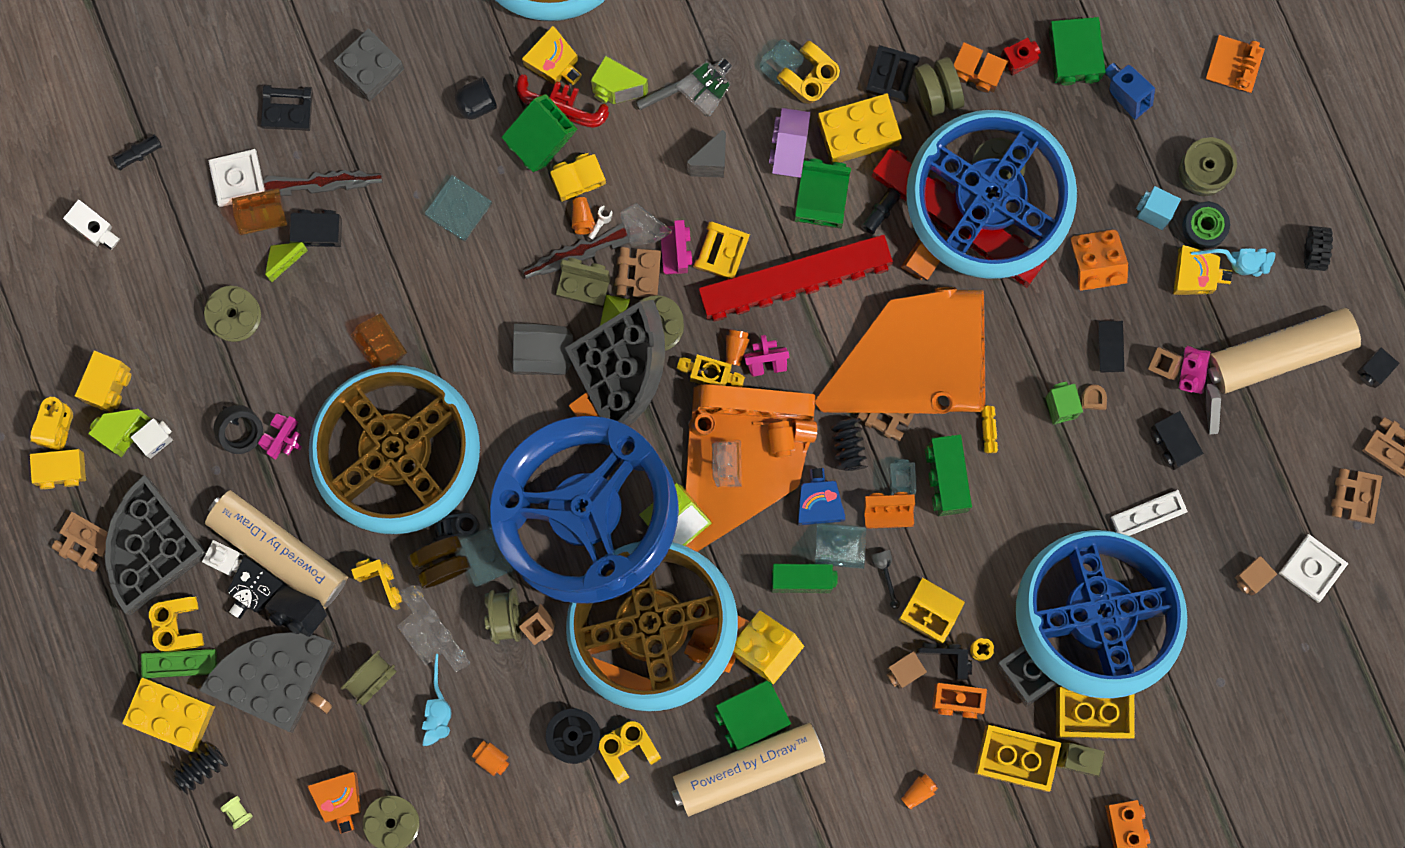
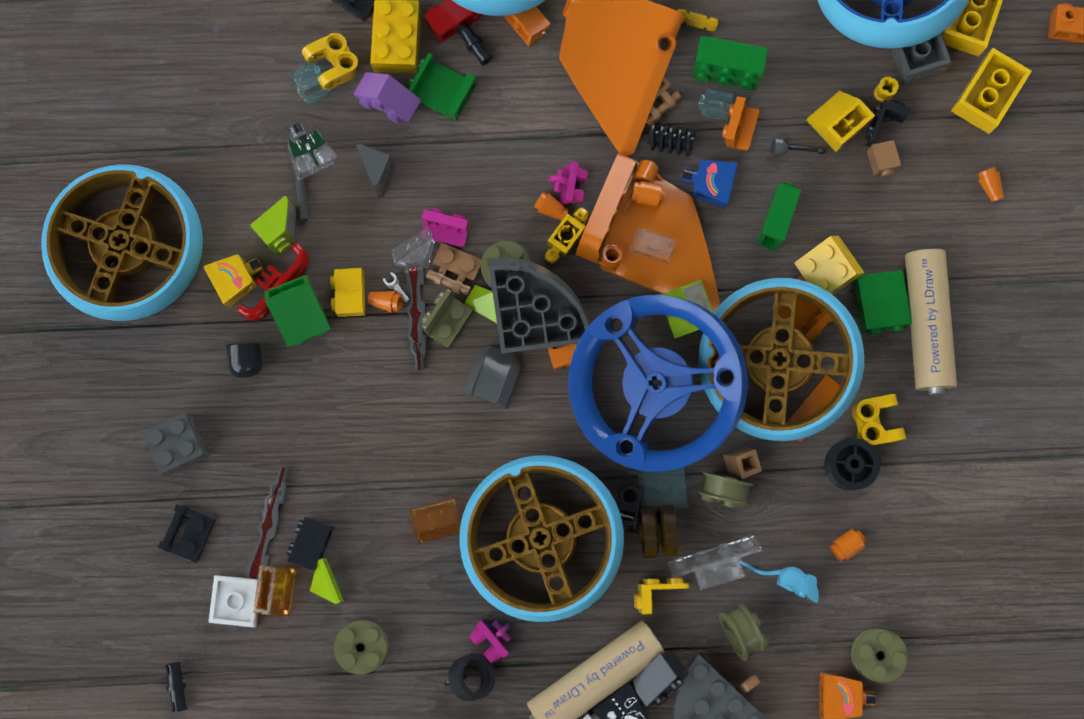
camera: 65 degrees left, 0 degrees up
(458, 208) = (337, 408): clear light blue tile -> none
(729, 253) = (465, 184): yellow plate -> none
(795, 277) = (507, 135): red brick -> none
(840, 545) = (758, 176): clear light blue tile -> none
(959, 699) = (924, 121): orange brick -> none
(1080, 759) = (1010, 35): olive torso -> none

